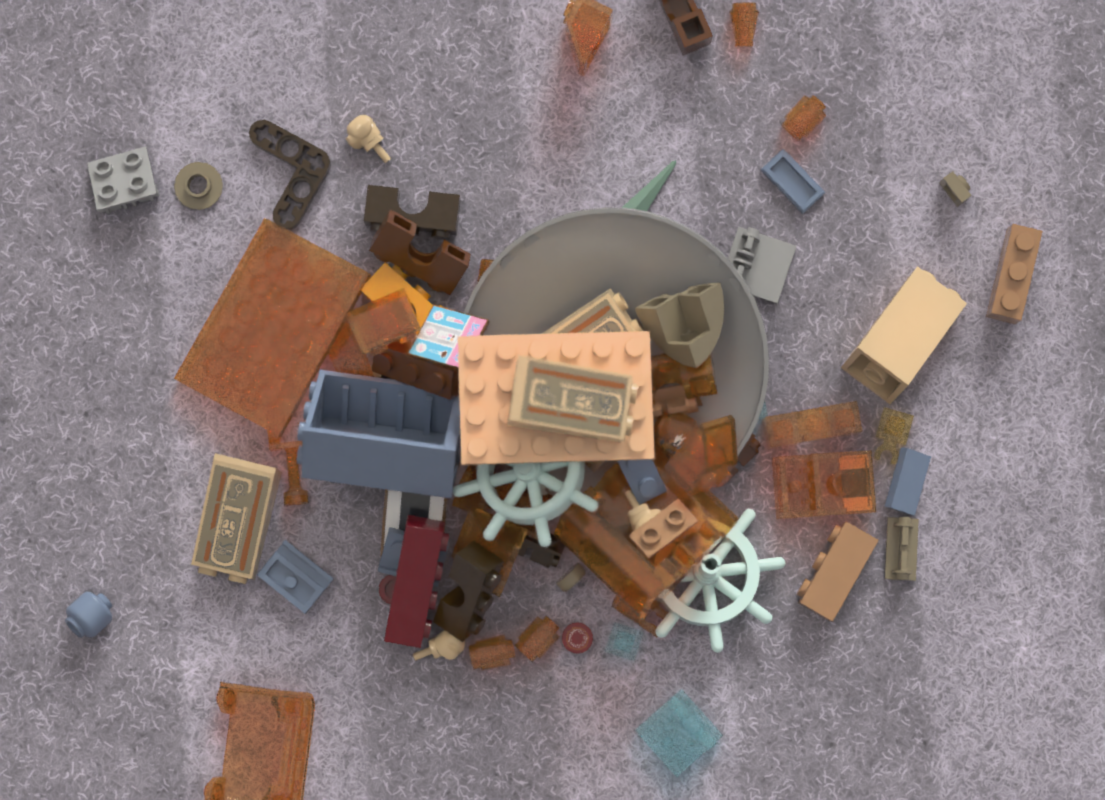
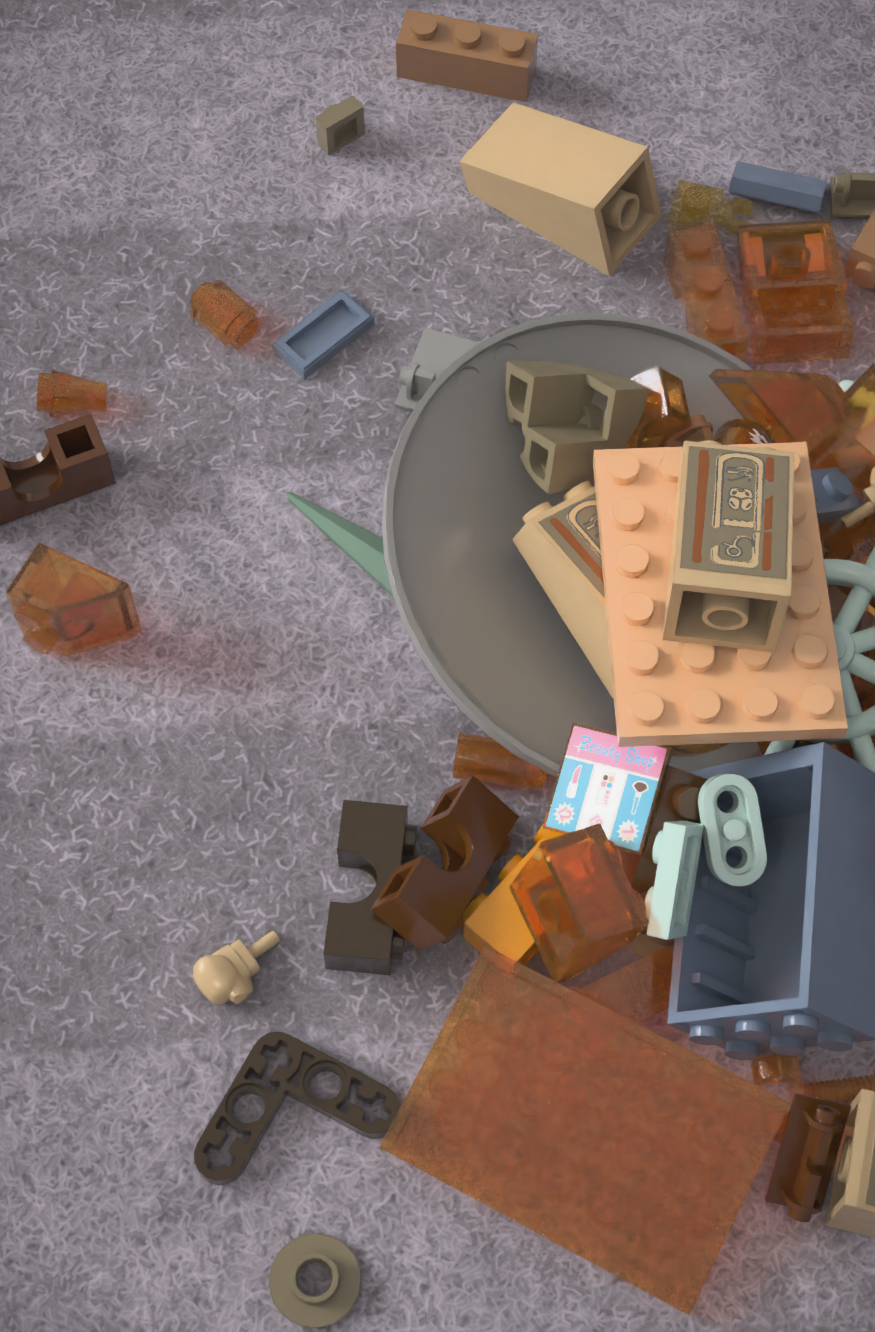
camera: 90 degrees left, 20 degrees down
(252, 445) = (807, 1155): none -> reddish brown hinge
(390, 371) = (671, 897): none -> light aqua plate
(421, 405) = (736, 827): none -> light aqua plate

